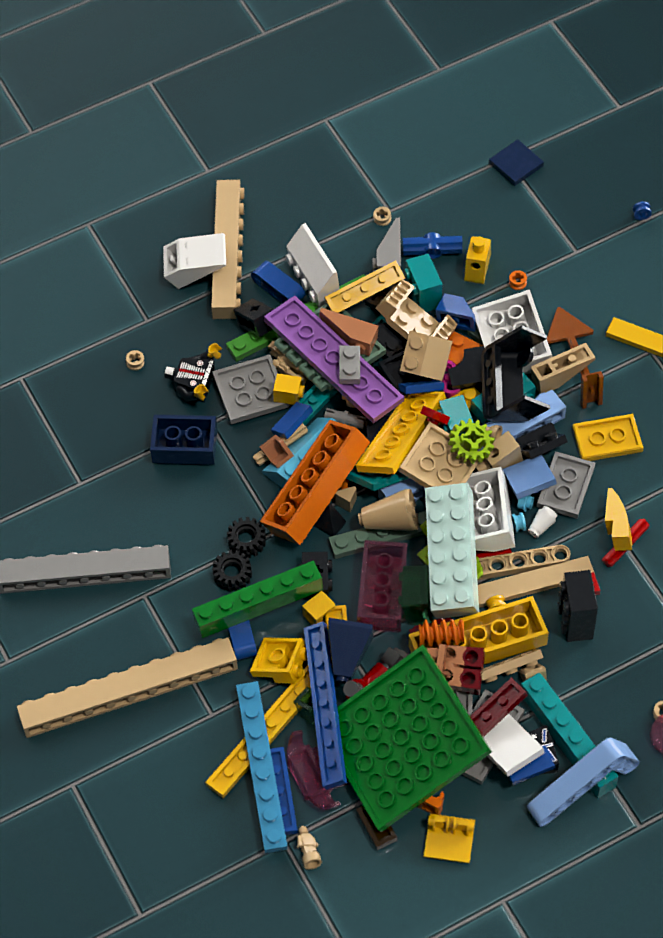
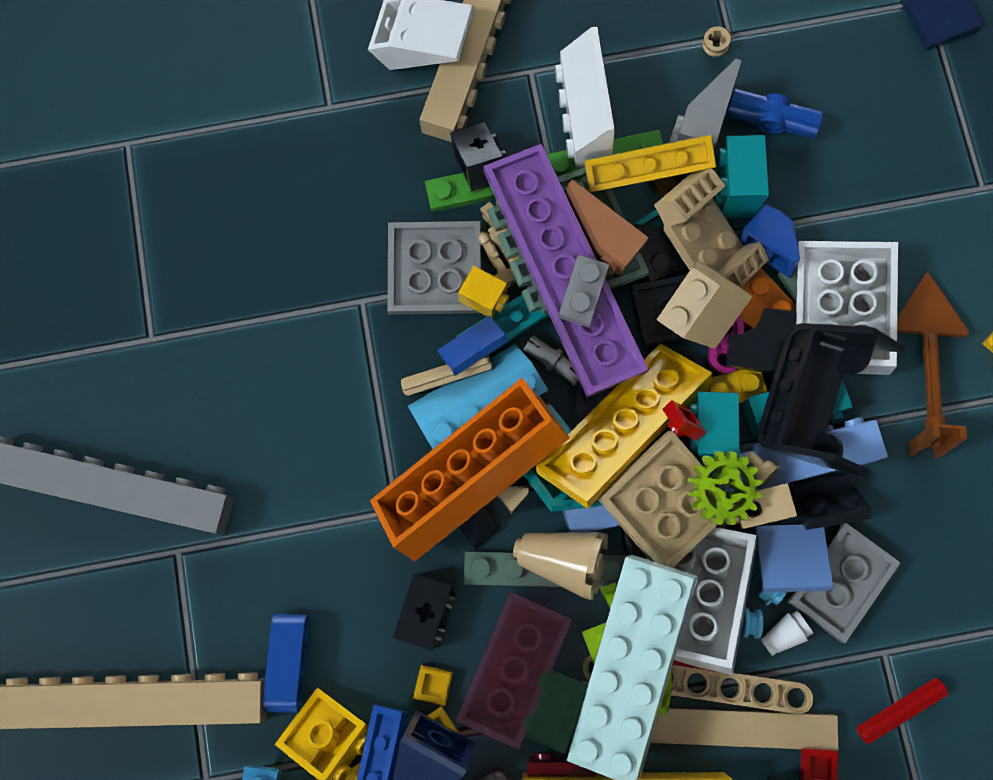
camera: 20 degrees right, 20 degrees up
(132, 355) = (289, 175): tan bush -> none
(183, 439) = (309, 323): dark blue brick -> none
(194, 374) = (360, 221): torso -> none
(232, 560) = (289, 557): black tyre -> none
(243, 527) = (328, 507): black tyre -> none
(257, 599) = (316, 642): green brick -> none
(276, 451) = (434, 391): nougat panel -> none
(277, 282) = (530, 107): blue beam -> none
(317, 608) = (409, 672): yellow panel -> none
(421, 386) = (679, 350): blue tile -> none
(478, 252) = (836, 155): yellow torso -> none
(495, 601) = (673, 753): yellow bush -> none
(517, 285) = (873, 215): orange bush -> none
(560, 368) = (903, 387): tan slope -> none
(607, 437) = (931, 519): yellow tile -> none
(617, 522) = (905, 681): yellow slope -> none

